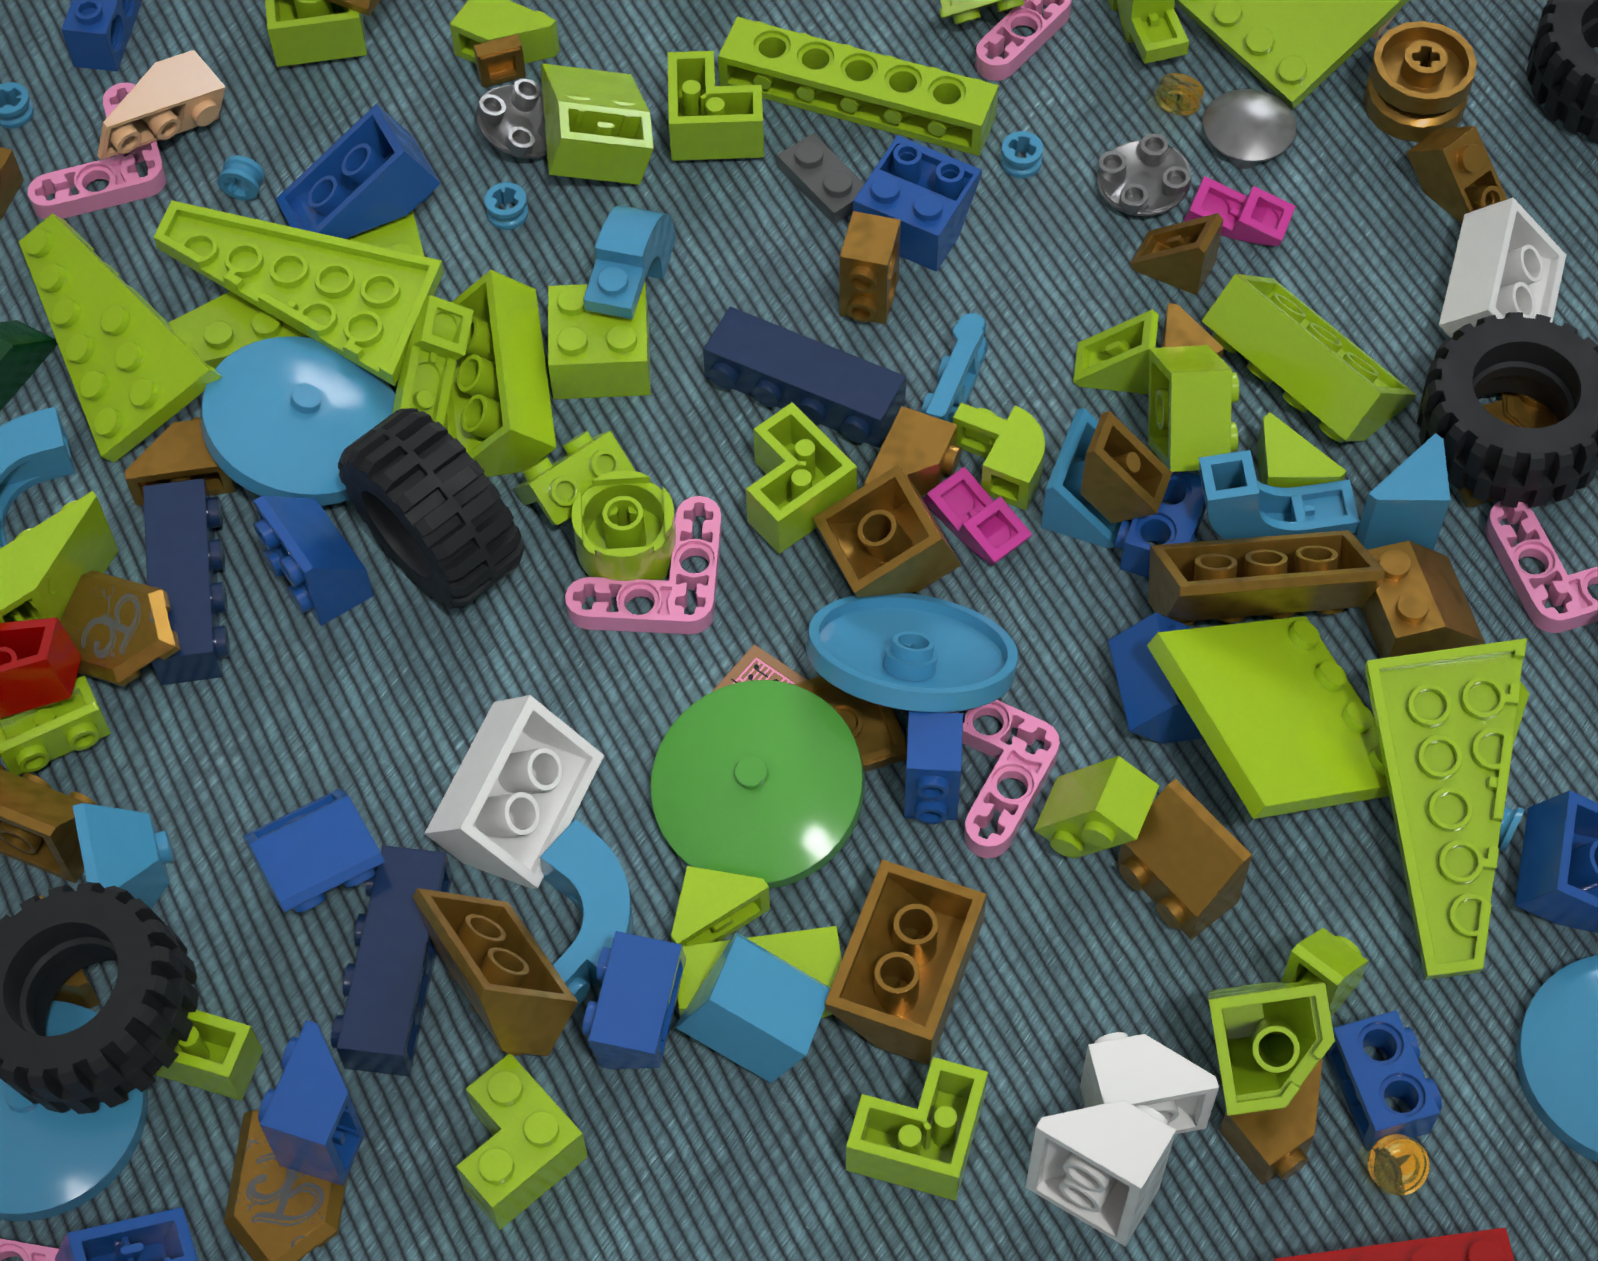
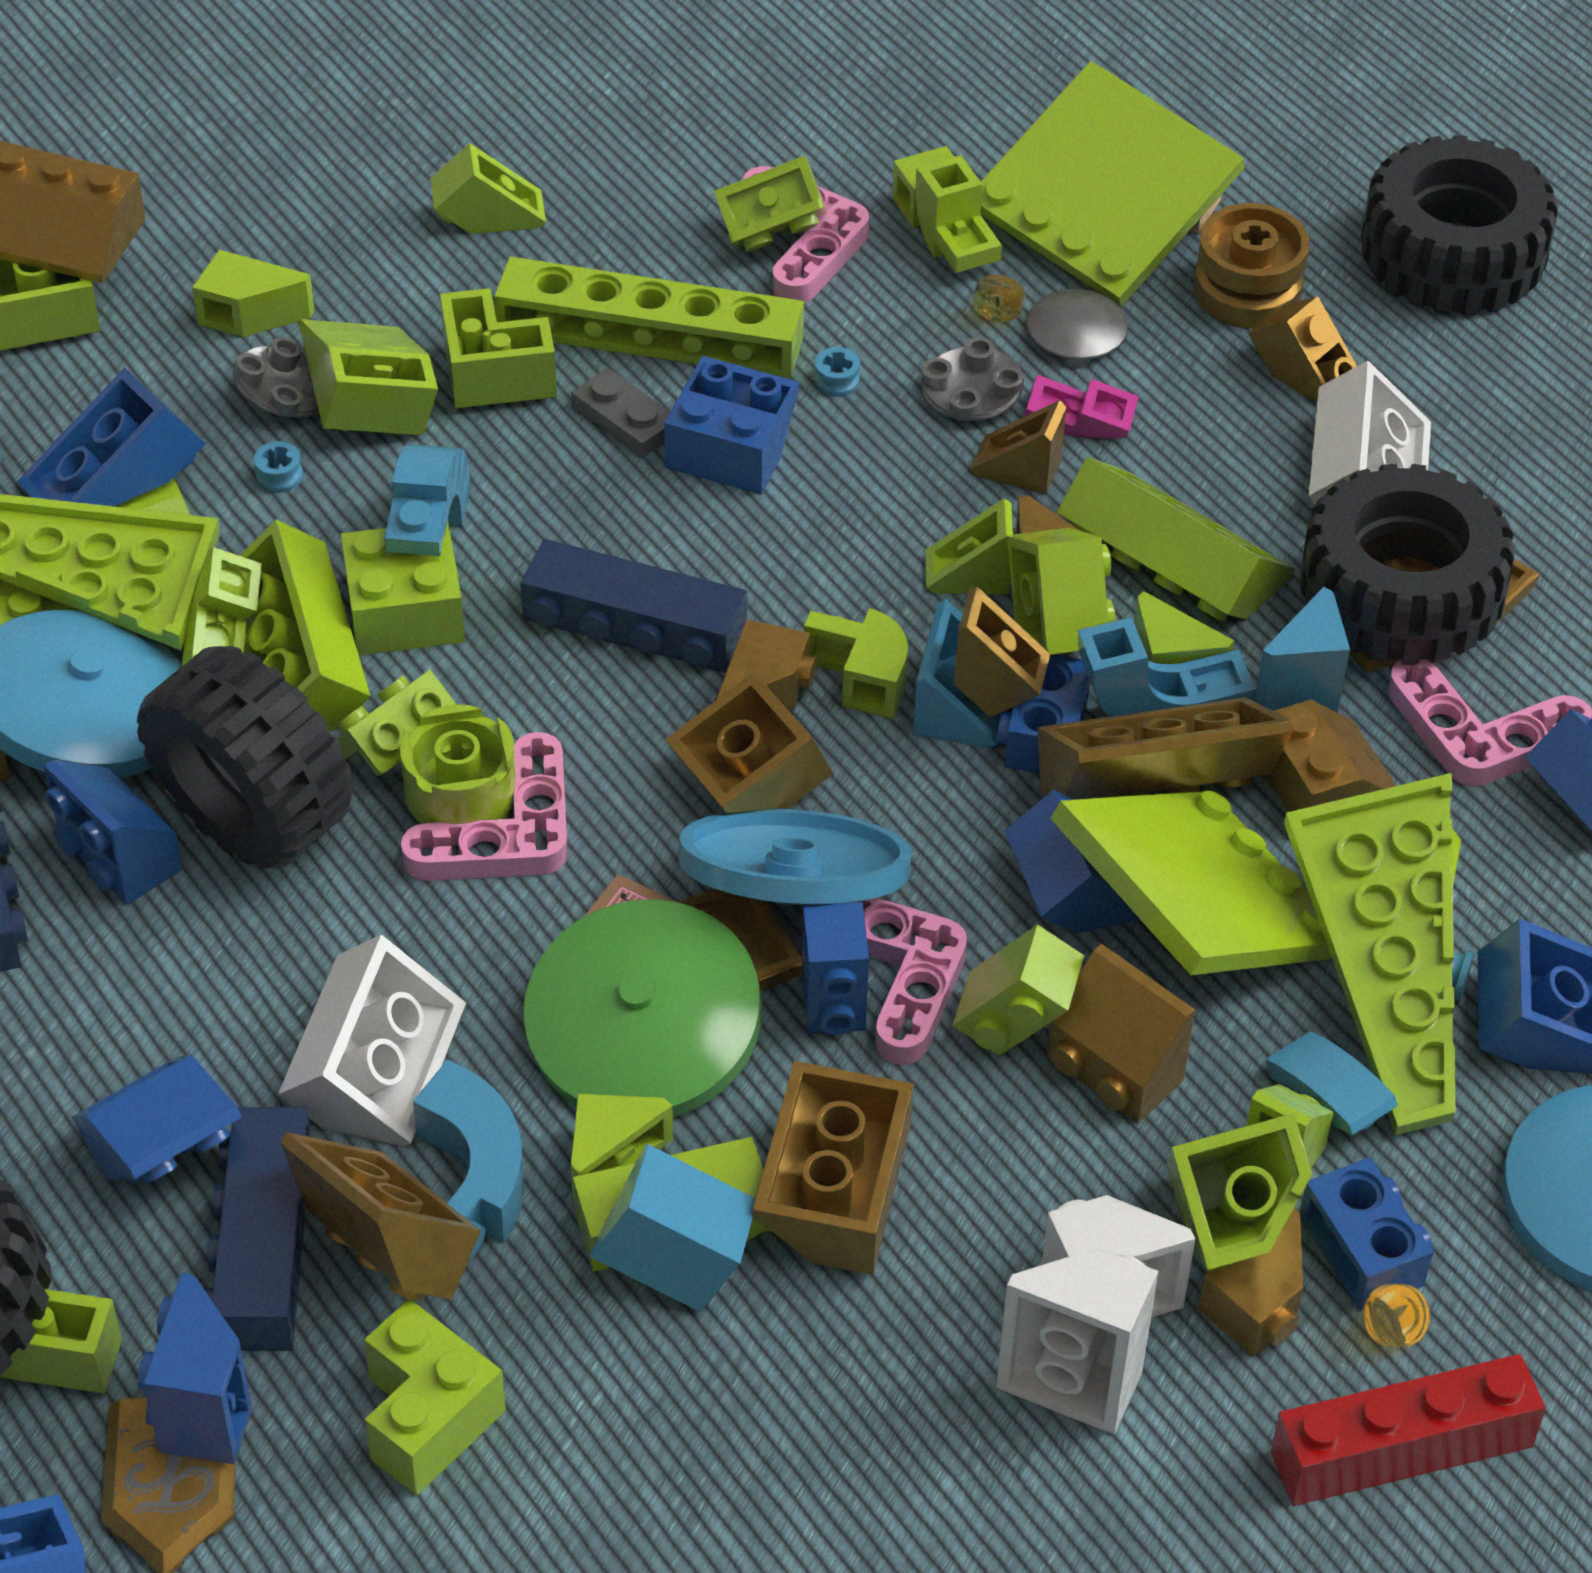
camera: 10 degrees left, 10 degrees down
(499, 60) = (251, 322): pearl gold tile -> none
(635, 1001) = (541, 1231): blue slope -> none
(801, 477) = (641, 701): lime brick -> none
(869, 267) = (691, 488): pearl gold brick -> none
(922, 1145) = (876, 1346): lime brick -> none
(960, 370) = (804, 583): dark azure hinge -> none
(975, 519) = (848, 734): dark pink slope -> none
(1373, 925) = (1334, 1080): none -> dark azure slope

